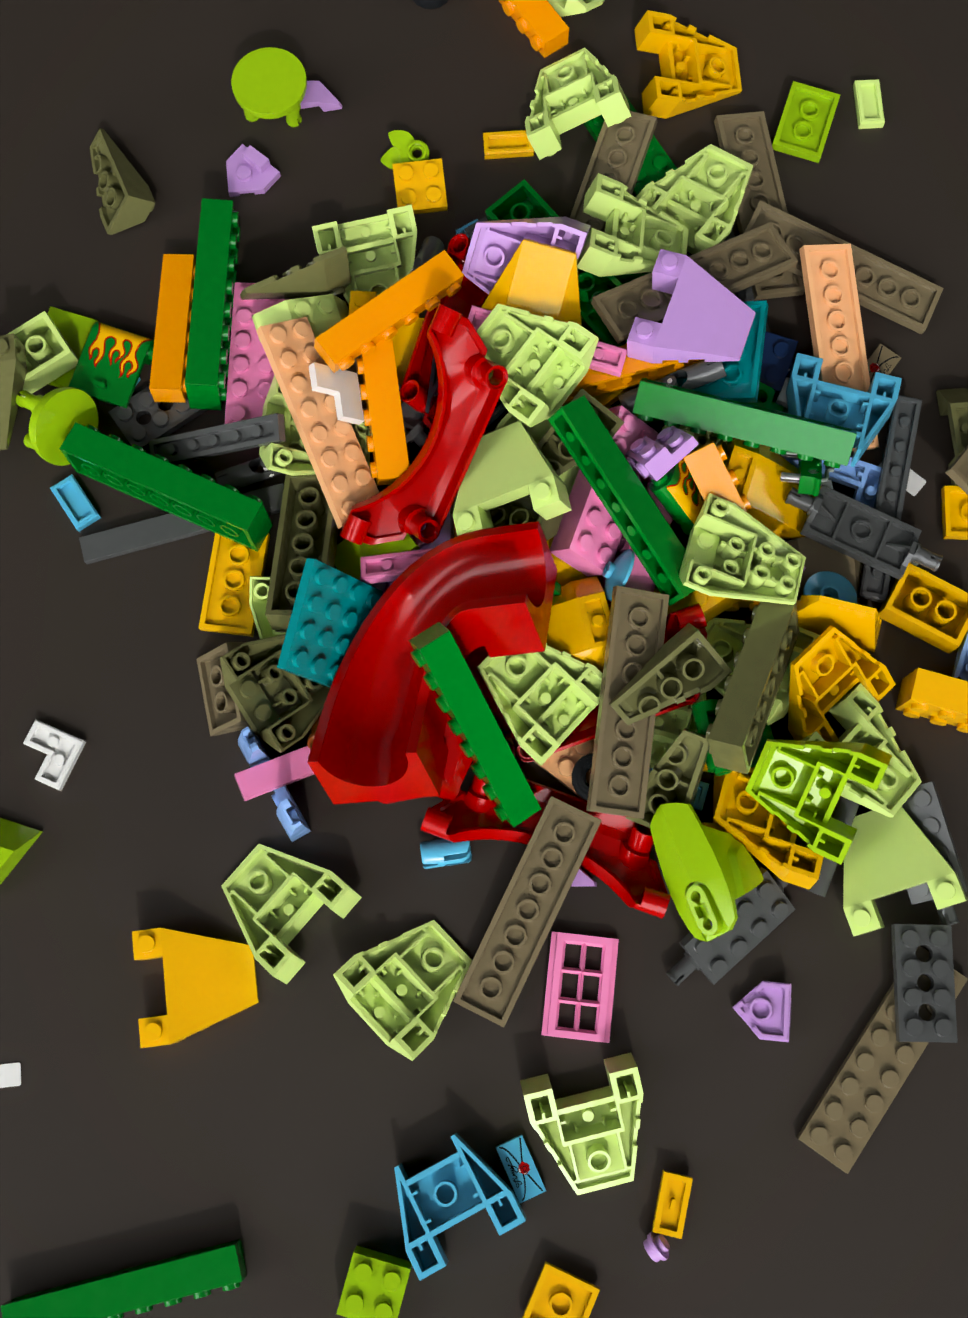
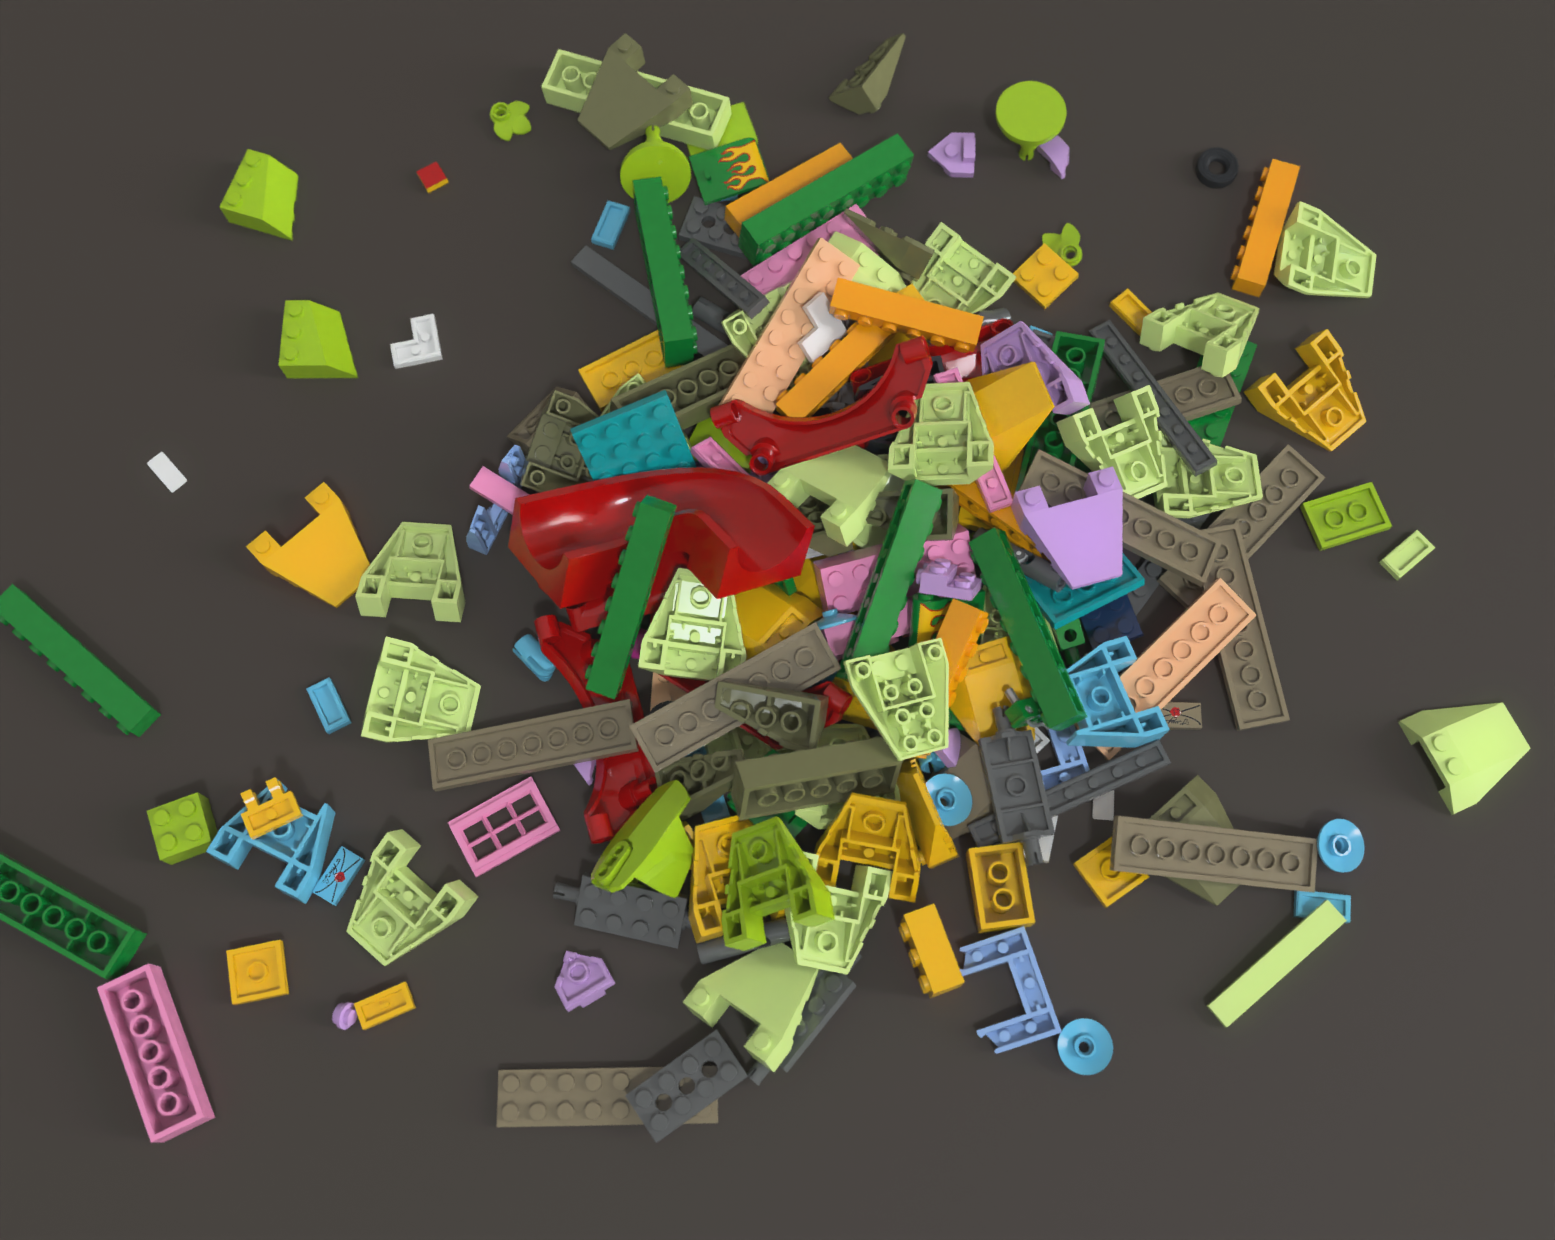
camera: 55 degrees right, 5 degrees down
(350, 1071) = (329, 705): none -> medium azure tile
(430, 1195) = (271, 814): none -> yellow plate
(576, 182) = (1171, 421): none -> dark grey tile

